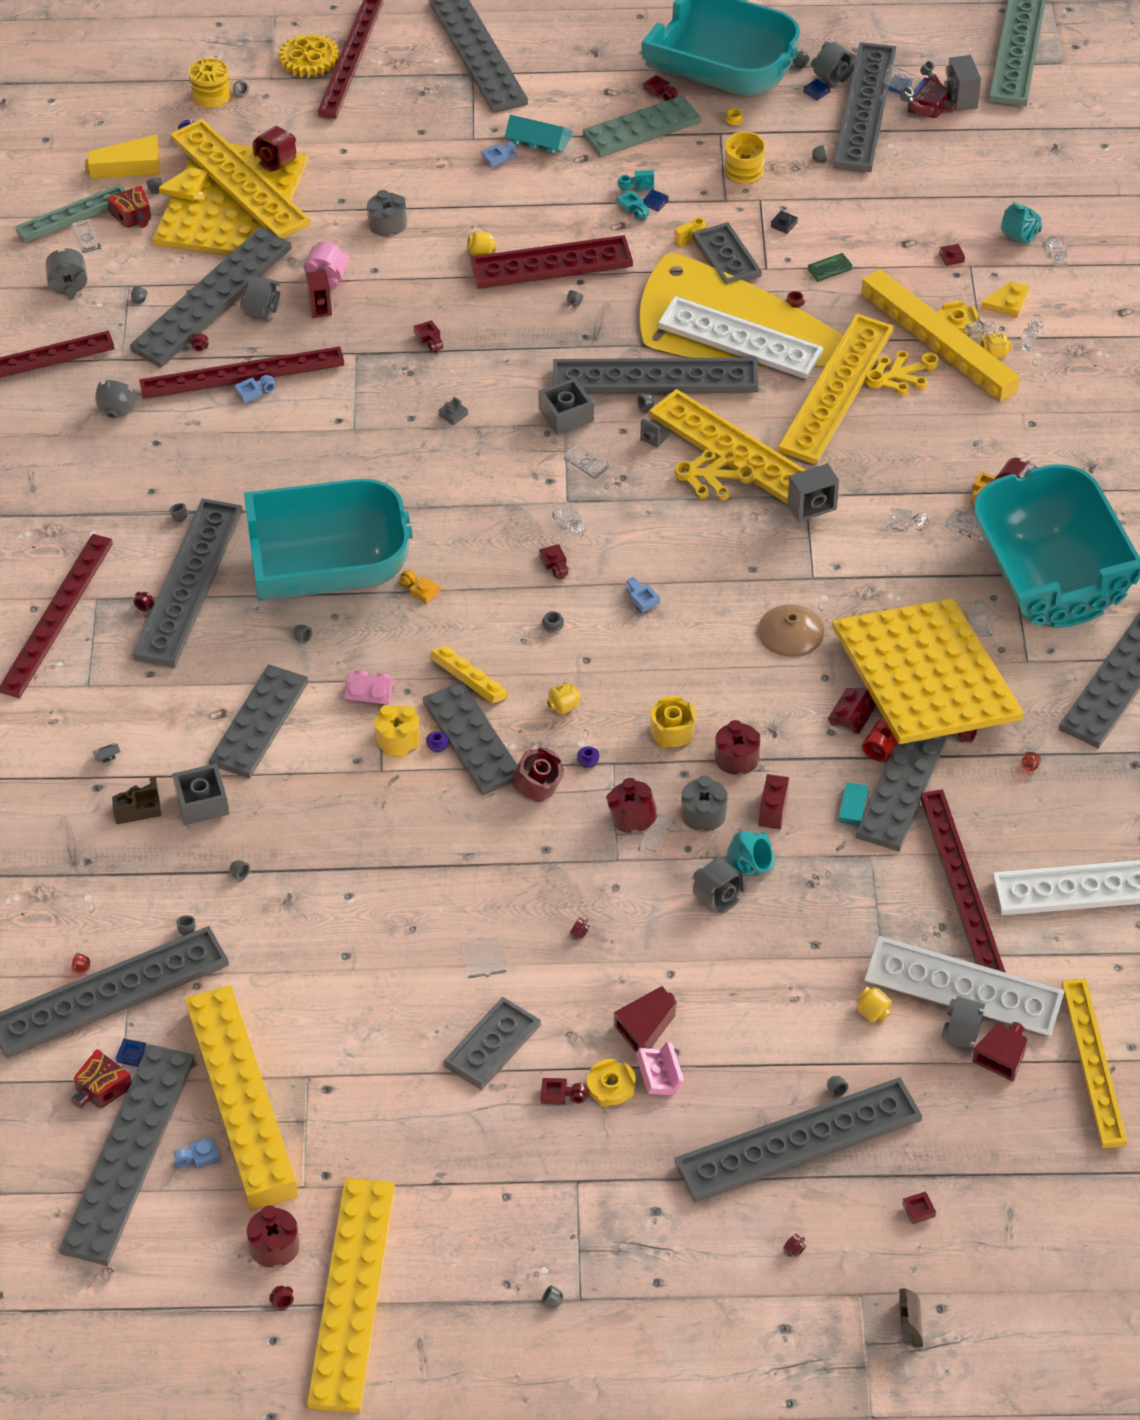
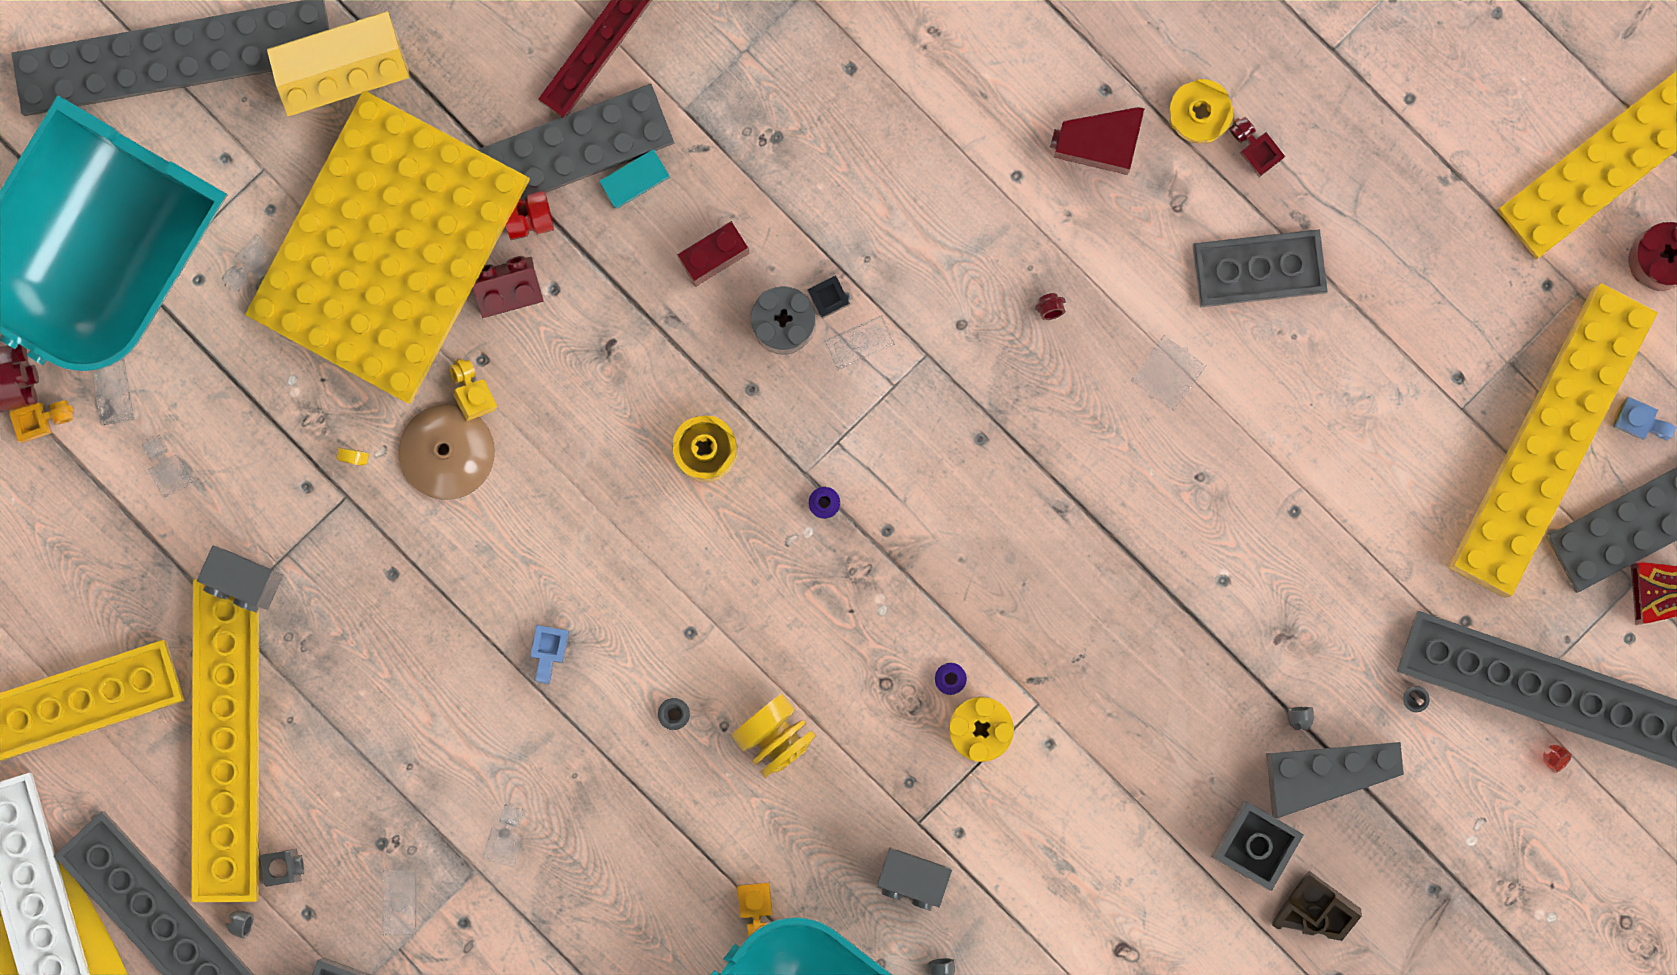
camera: 130 degrees left, 35 degrees up
(131, 1052) = (1599, 602): clear blue tile -> none
(197, 855) = (1320, 775): none -> dark grey wedge
(258, 721) = (1097, 896): dark grey plate -> none
(359, 645) = (913, 878): none -> dark grey brick
(368, 688) = (948, 819): bright pink bracket -> none
(468, 674) = (833, 732): yellow plate -> none
(471, 737) = (909, 649): dark grey plate -> none
(494, 641) = (773, 736): none -> yellow wheel
(538, 774) = (908, 536): dark red brick -> none
(554, 559) = (577, 803): dark red plate -> none
(563, 698) = (776, 595): yellow head -> none
(632, 806) = (871, 399): dark red brick -> none
(660, 1069) = (1146, 75): bright pink bracket -> none
(695, 836) = (828, 297): none -> black plate
(712, 472) = (294, 740): yellow plant -> none
(718, 885) = (880, 207): dark grey brick -> none
(737, 748) = (662, 341): dark red brick -> none
(751, 853) = (809, 214): teal piece -> none
(806, 656) = (473, 397): none -> yellow plate
(830, 588) = (352, 456): none -> yellow tile
(1031, 761) = (415, 45): clear red hinge -> none
(1050, 716) = (338, 63): none -> yellow slope

